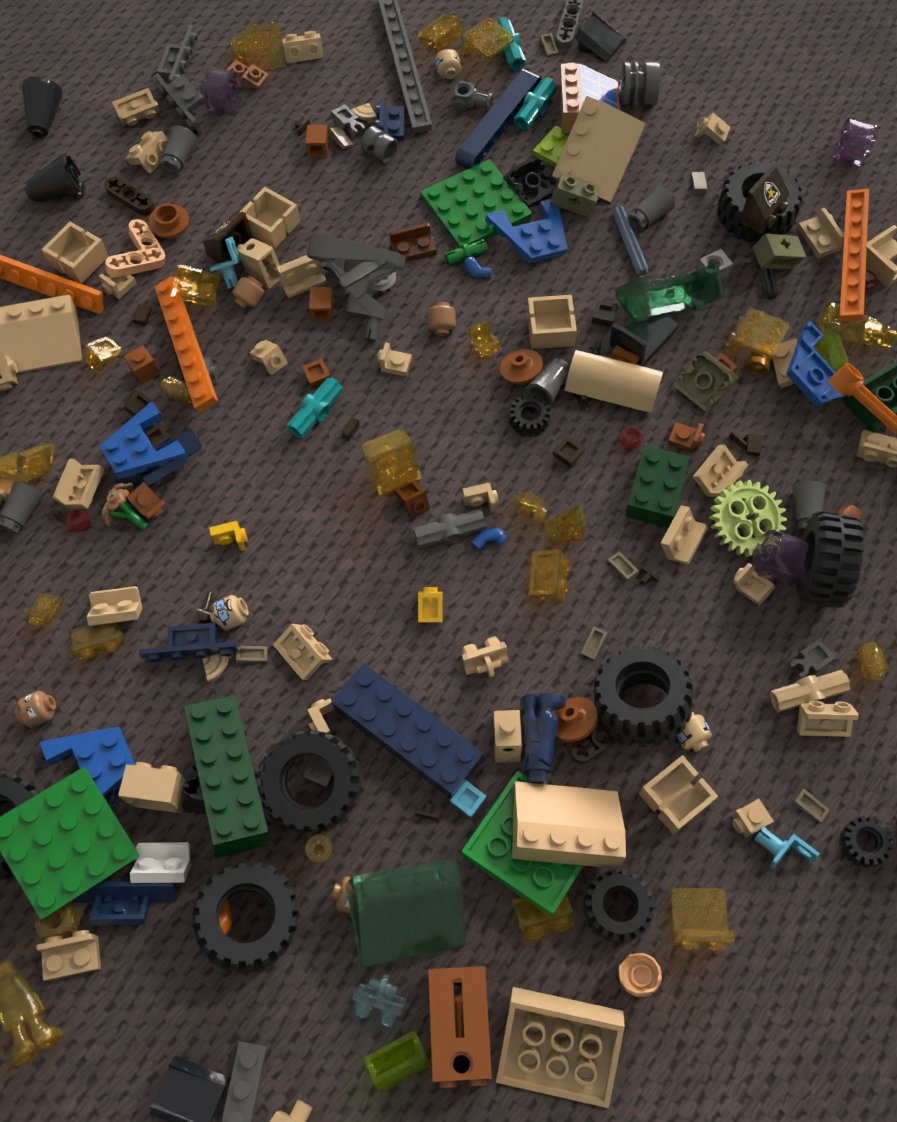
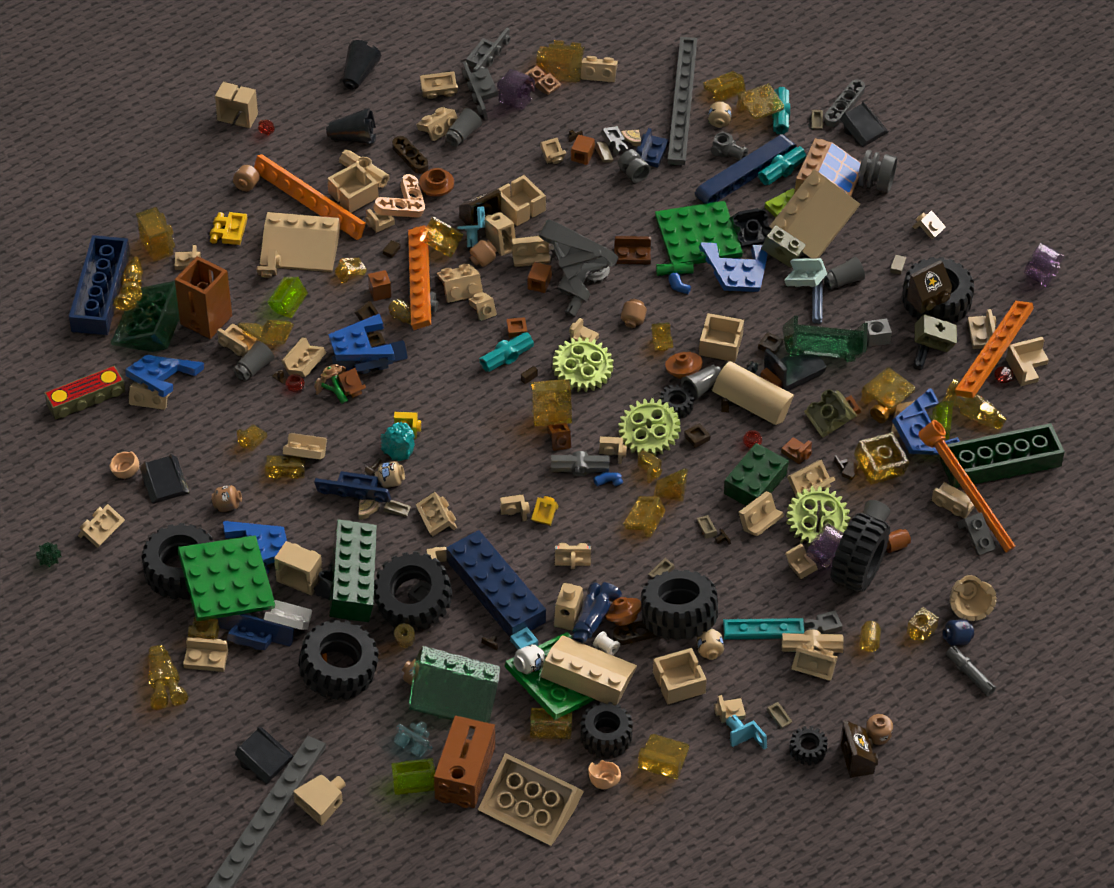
camera: 15 degrees right, 15 degrees down
(38, 408) = (288, 296): none -> clear neon green brick
(61, 218) = (349, 158): none -> tan piece
(225, 565) = (398, 441): none -> teal hair
(234, 334) = (460, 282): none -> tan bracket
(285, 150) = (552, 151): none -> tan bracket
(390, 609) = (513, 505): none -> tan bracket
(409, 381) = (567, 358): none -> yellowish green gear
(492, 842) = (529, 659): none -> white head
(503, 440) = (647, 413): none -> yellowish green gear
(569, 772) = (606, 644): none -> white bush
(612, 218) = (806, 272): none -> light aqua bracket
(743, 687) = (761, 628): none -> teal tile
(787, 421) = (881, 458): none -> clear yellow brick

